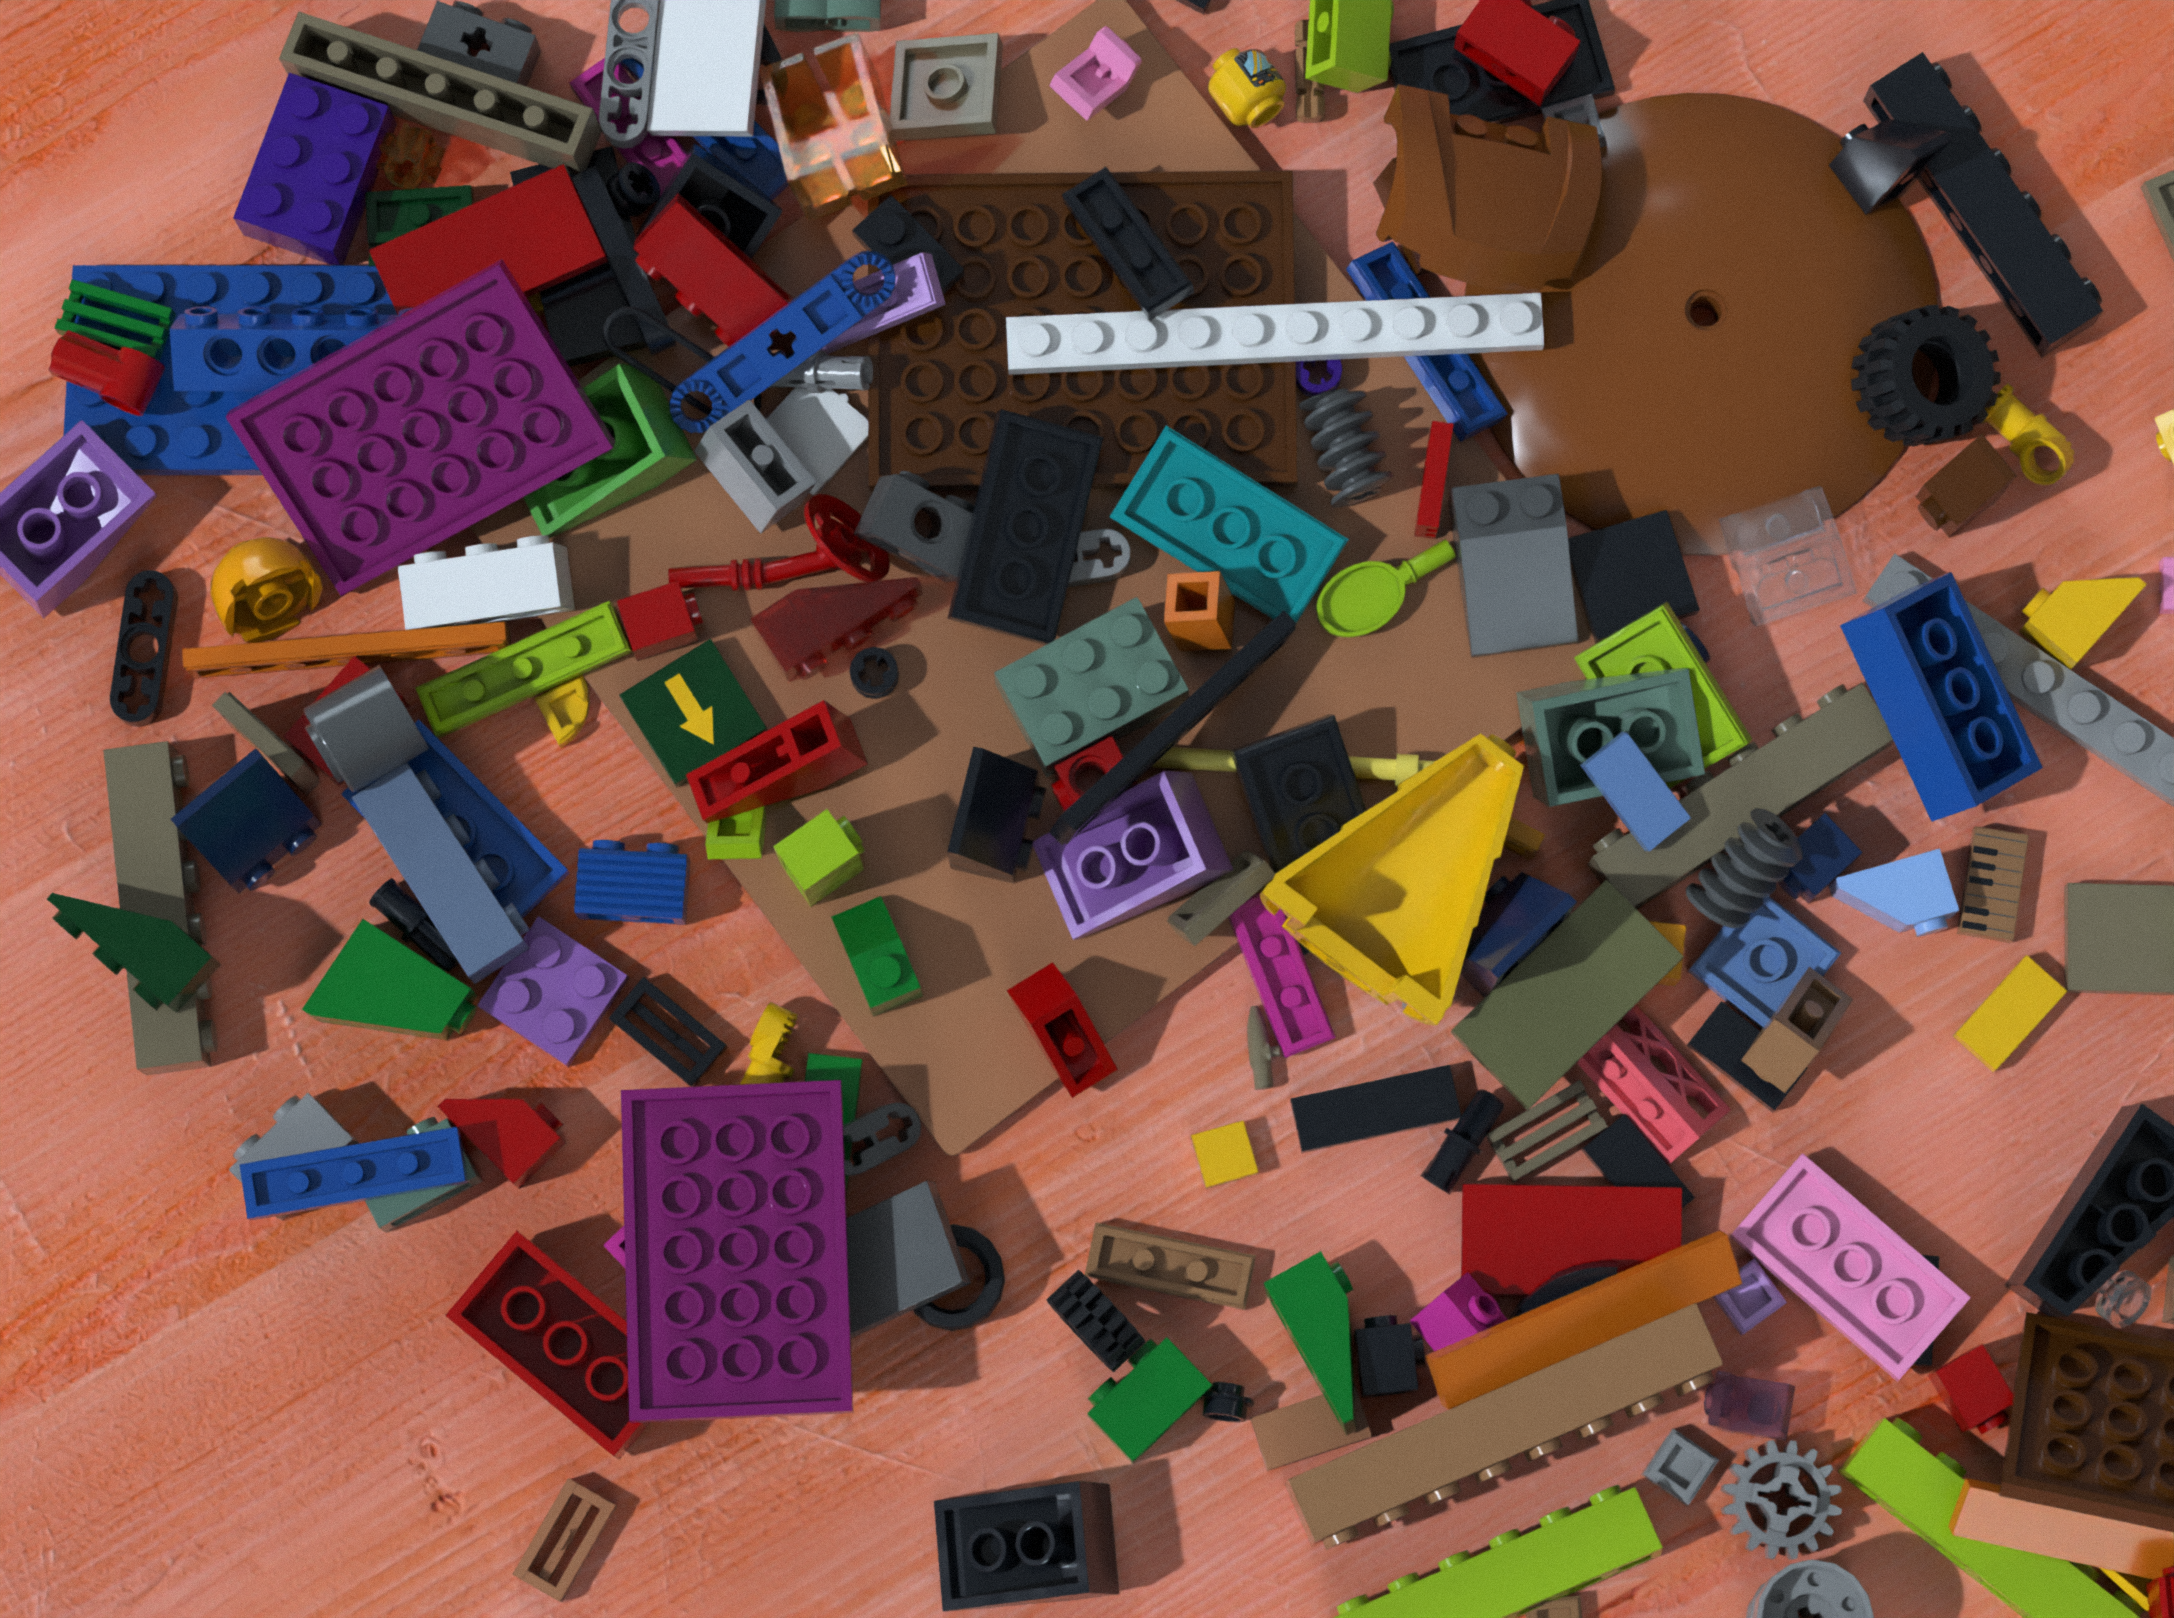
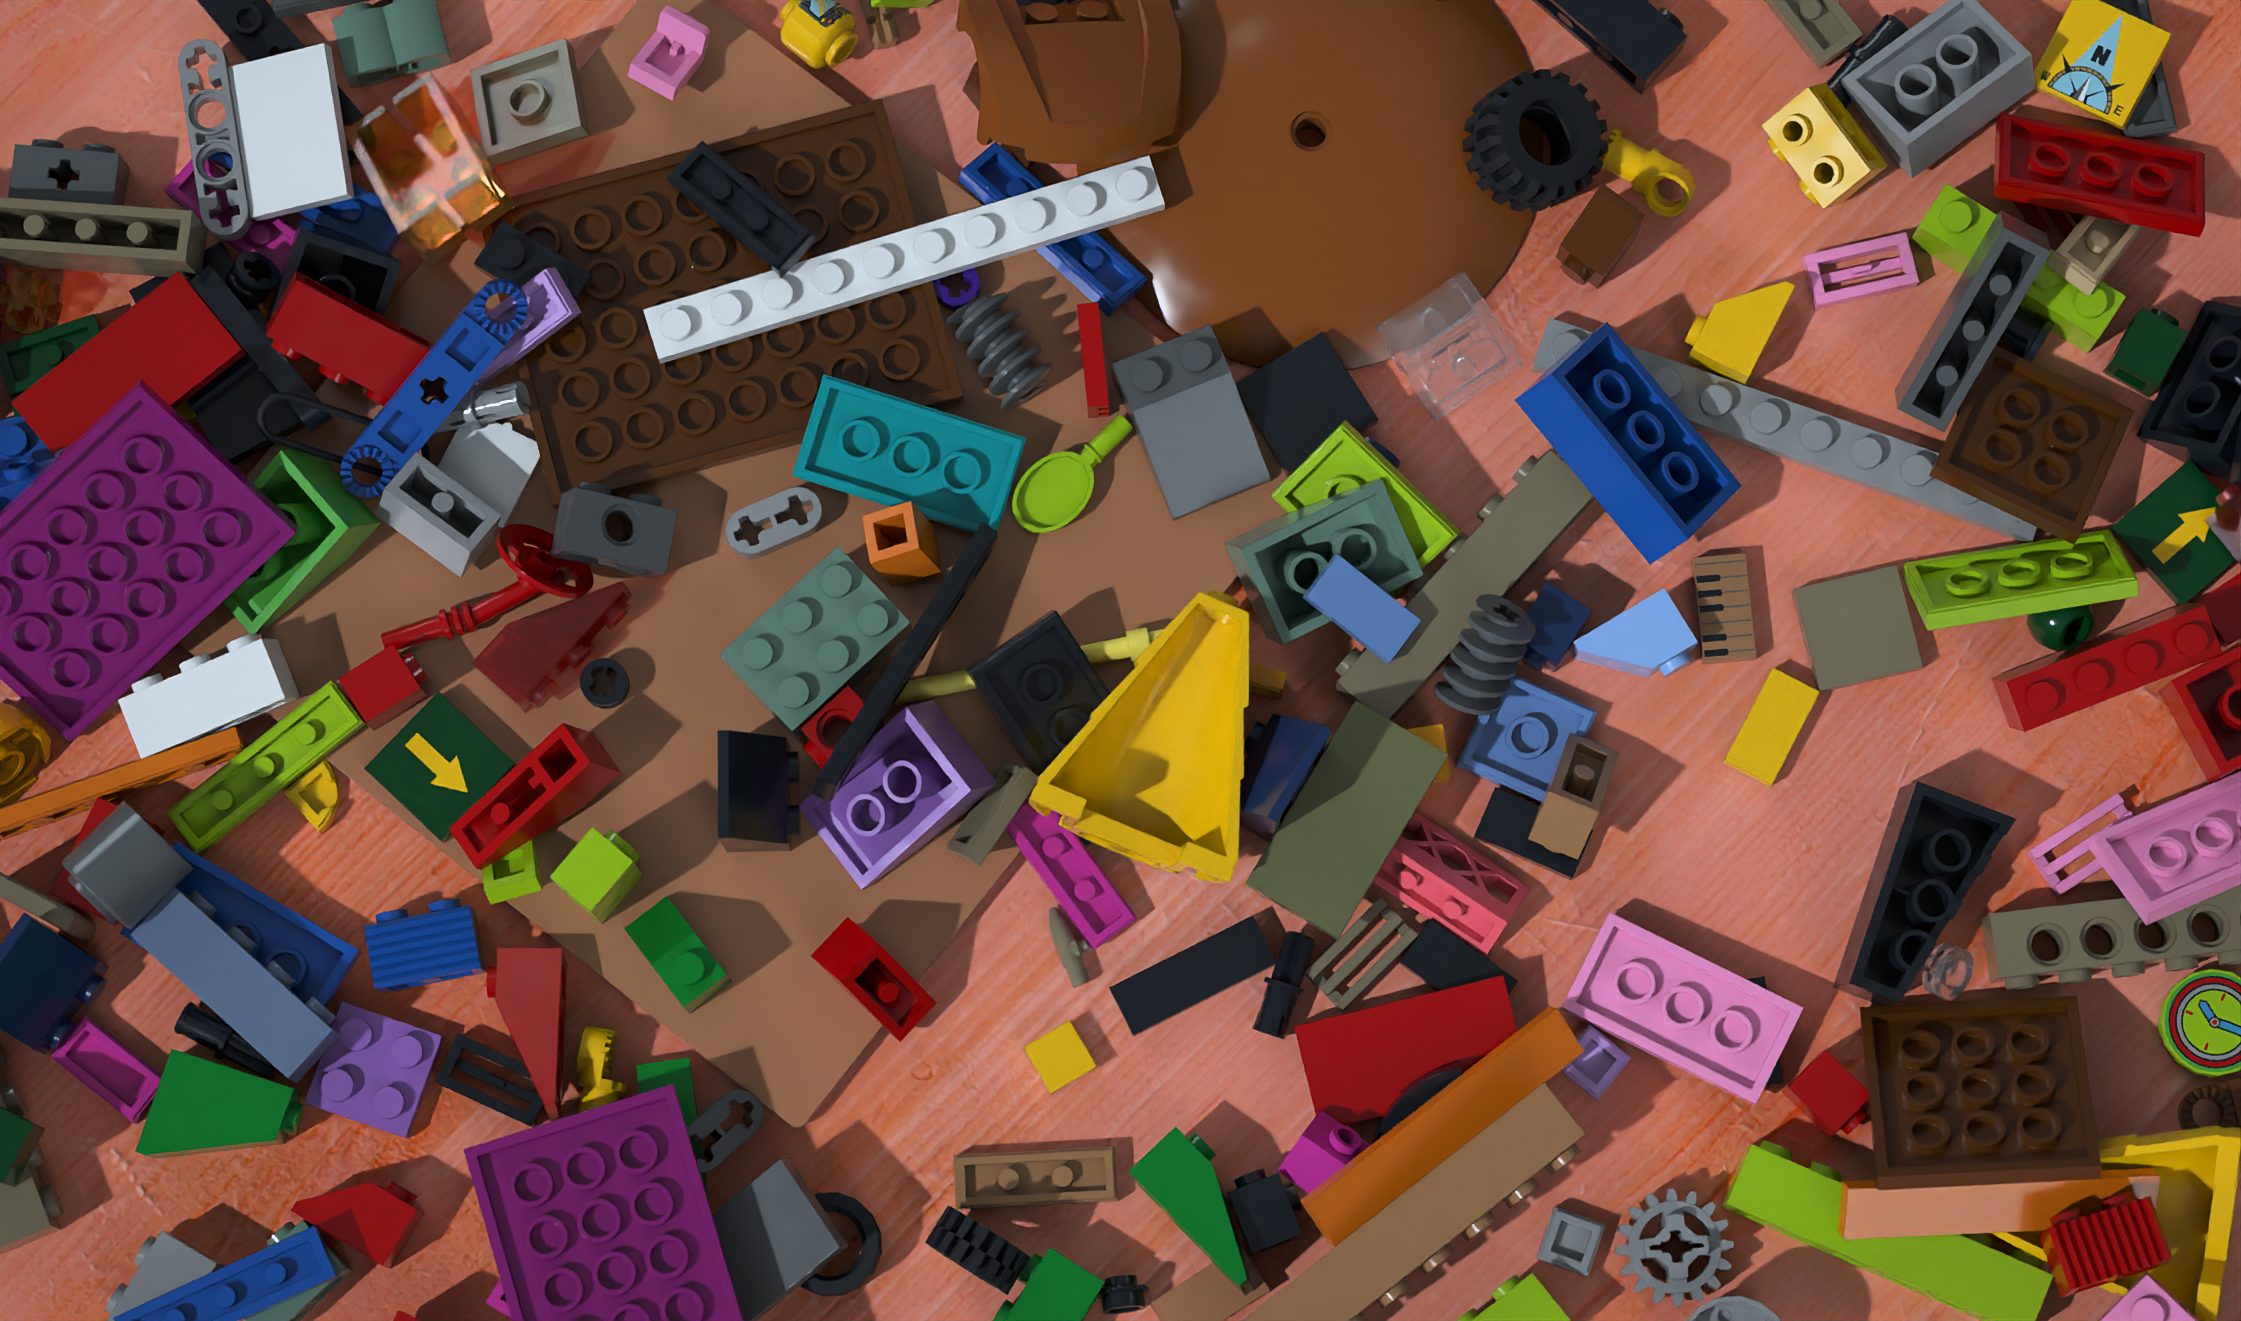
camera: 15 degrees left, 0 degrees up
(296, 923) = (109, 1069): none -> dark pink tile
(722, 965) = (532, 1003): none -> red slope
(1025, 527) = (713, 507): black tile -> none
(1749, 1406) = (1620, 1166): clear purple bracket -> none

